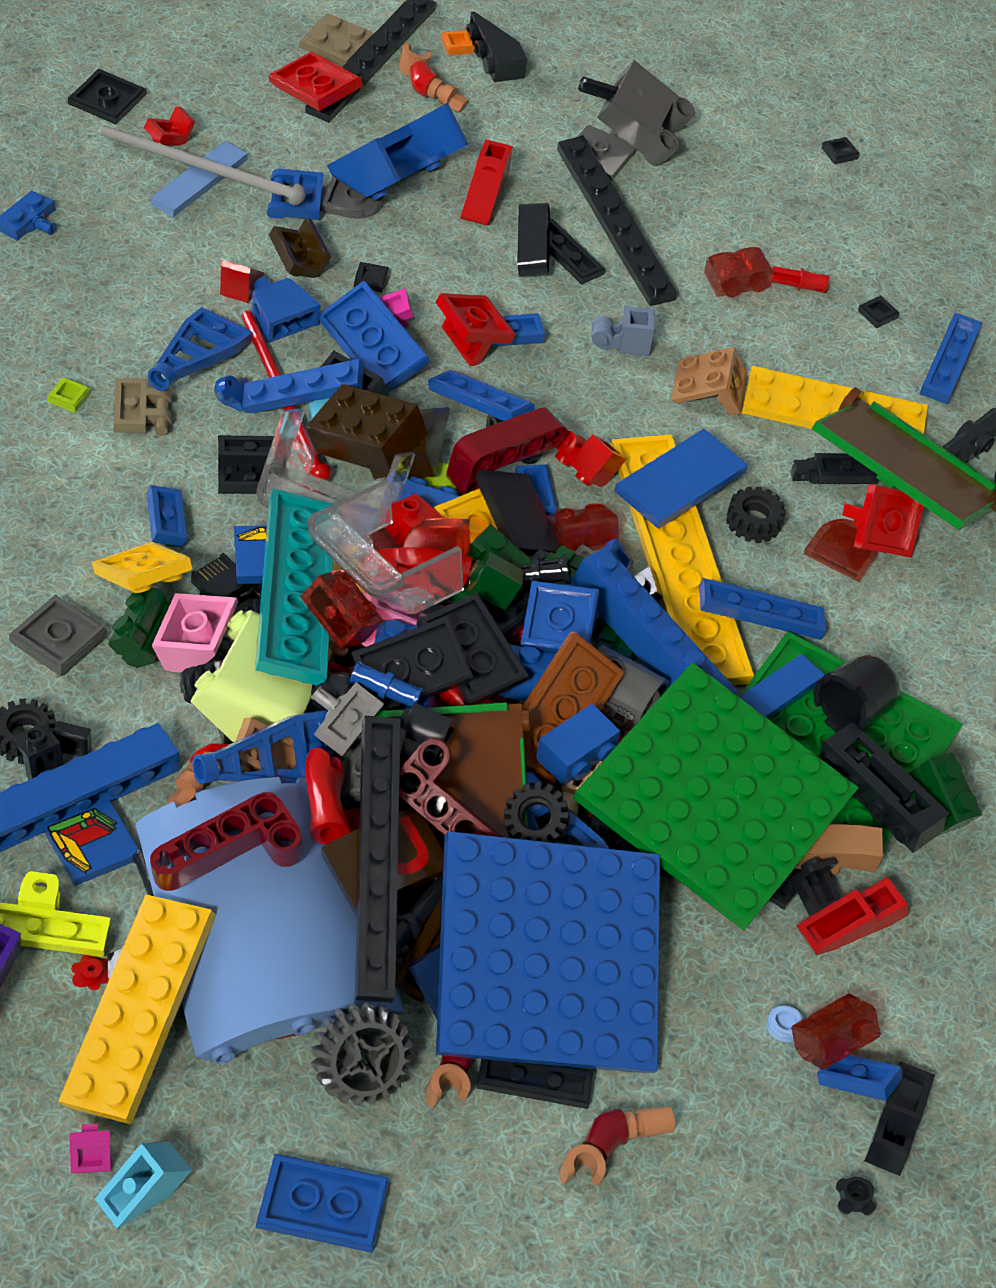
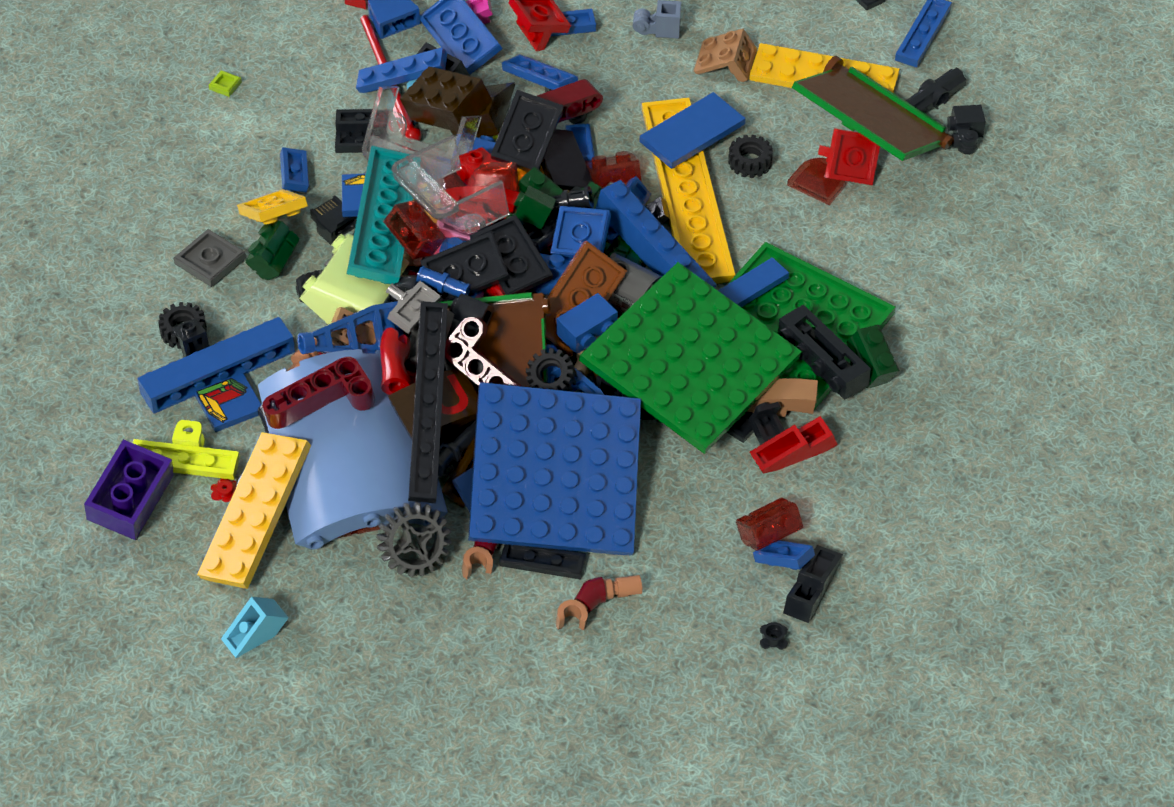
camera: 10 degrees right, 0 degrees up
(73, 738) = (216, 329): black tile -> none
(90, 1150) = (217, 605): dark pink tile -> none
(131, 409) = (272, 93): dark tan plate -> none
(192, 630) = (306, 249): bright pink slope -> none
(208, 326) = (331, 27): blue plate -> none
(230, 391) = (347, 76): blue piece -> none
(322, 1203) = (382, 641): blue tile -> none
(477, 476) = (527, 131): none -> black plate
(593, 459) = (623, 116): red brick -> none
(762, 608) = (746, 225): blue plate -> none
(781, 1020) = (729, 518): light blue tile -> none
(832, 469) = (812, 121): black hinge -> none
(857, 692) = (810, 283): black cylinder -> none

